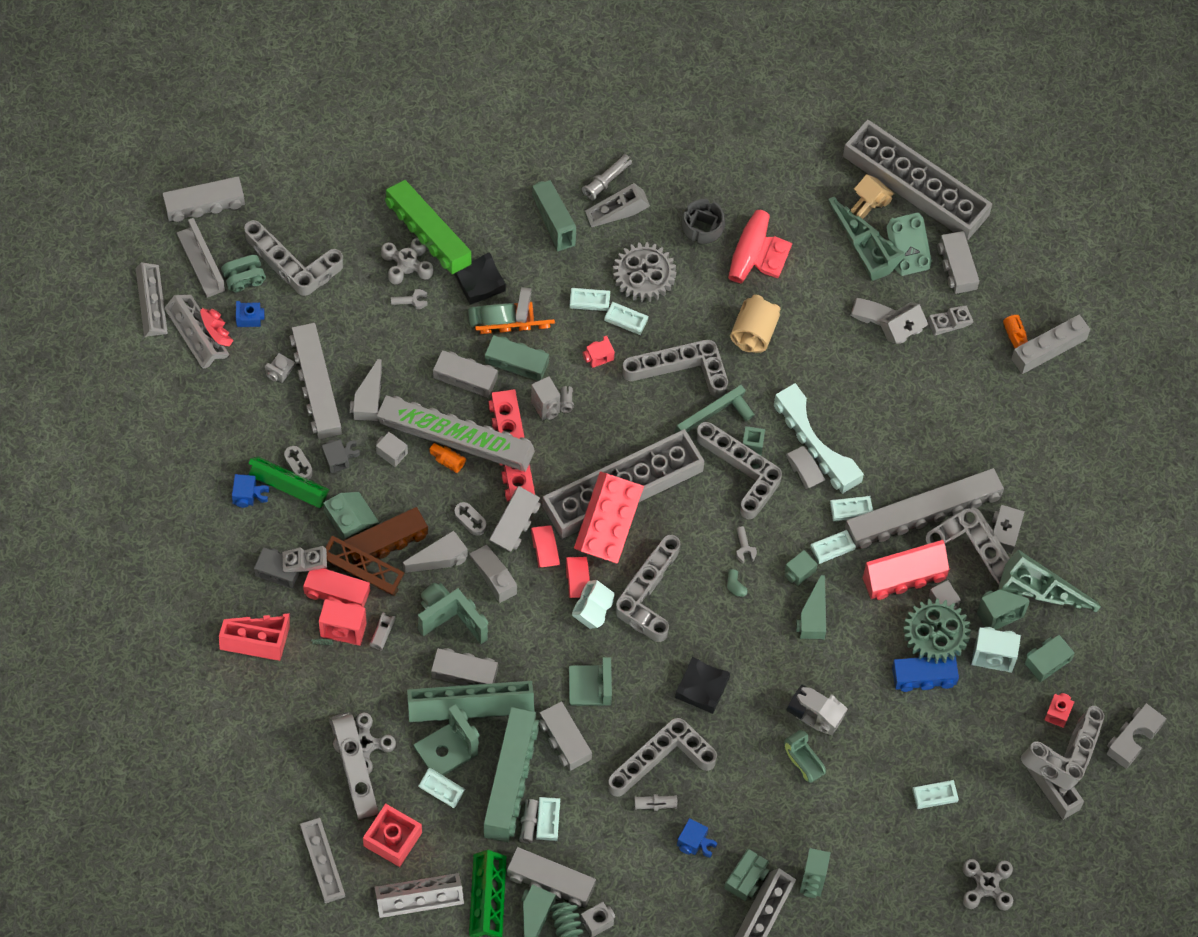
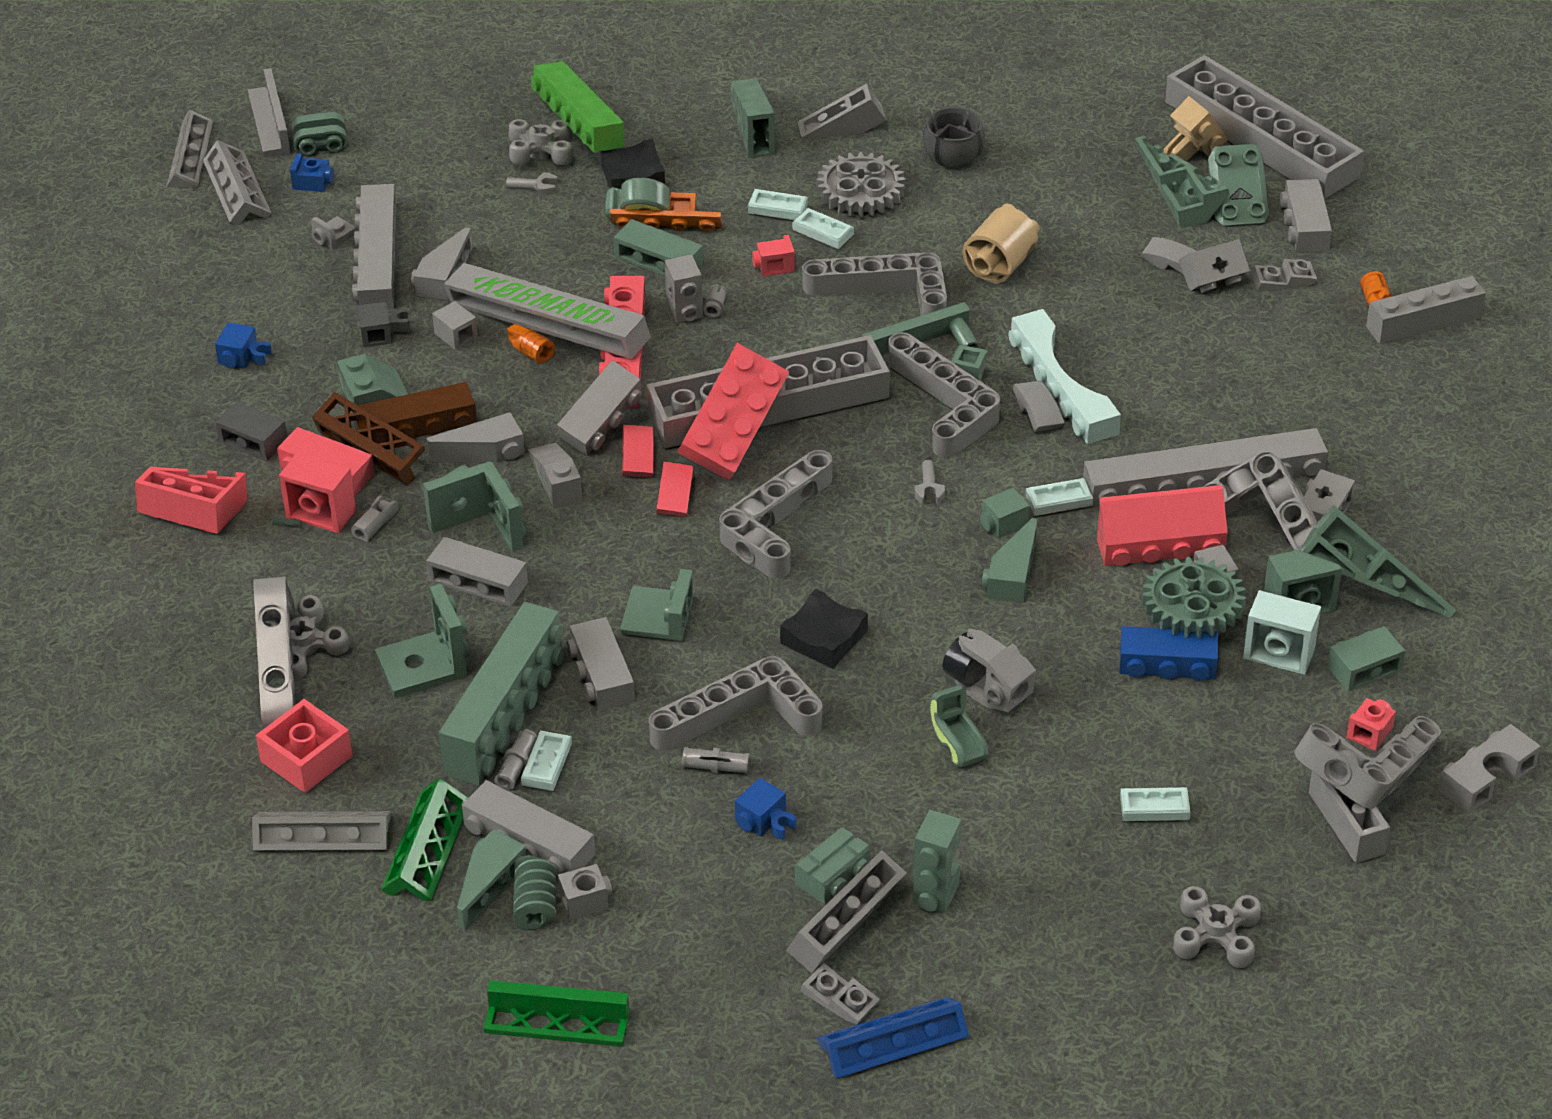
camera: 15 degrees right, 20 degrees down
(203, 199) = (295, 59): light grey brick -> none
(214, 326) = (262, 180): coral slope -> none
(288, 267) = (383, 137): light grey beam -> none
(288, 481) = (298, 341): green fence -> none
(302, 460) = (316, 331): light grey beam -> none
(304, 560) = (281, 417): light grey slope -> none
(322, 860) = (192, 768): light grey plate -> none
(441, 787) = (398, 703): light aqua plate -> none
(465, 373) = (581, 258): light grey brick -> none
(467, 522) = (536, 414): light grey beam -> none
(475, 700) = (478, 602): sand green brick -> none
(523, 305) = (681, 189): light grey beam -> none
(593, 604) = (687, 517): light aqua brick -> none
(601, 182) = (827, 93): light grey pin -> none
(734, 585) = (903, 525): sand green arm -> none
(756, 249) = (1023, 175): coral plate -> none
(850, 508) = (1079, 453): light aqua plate -> none

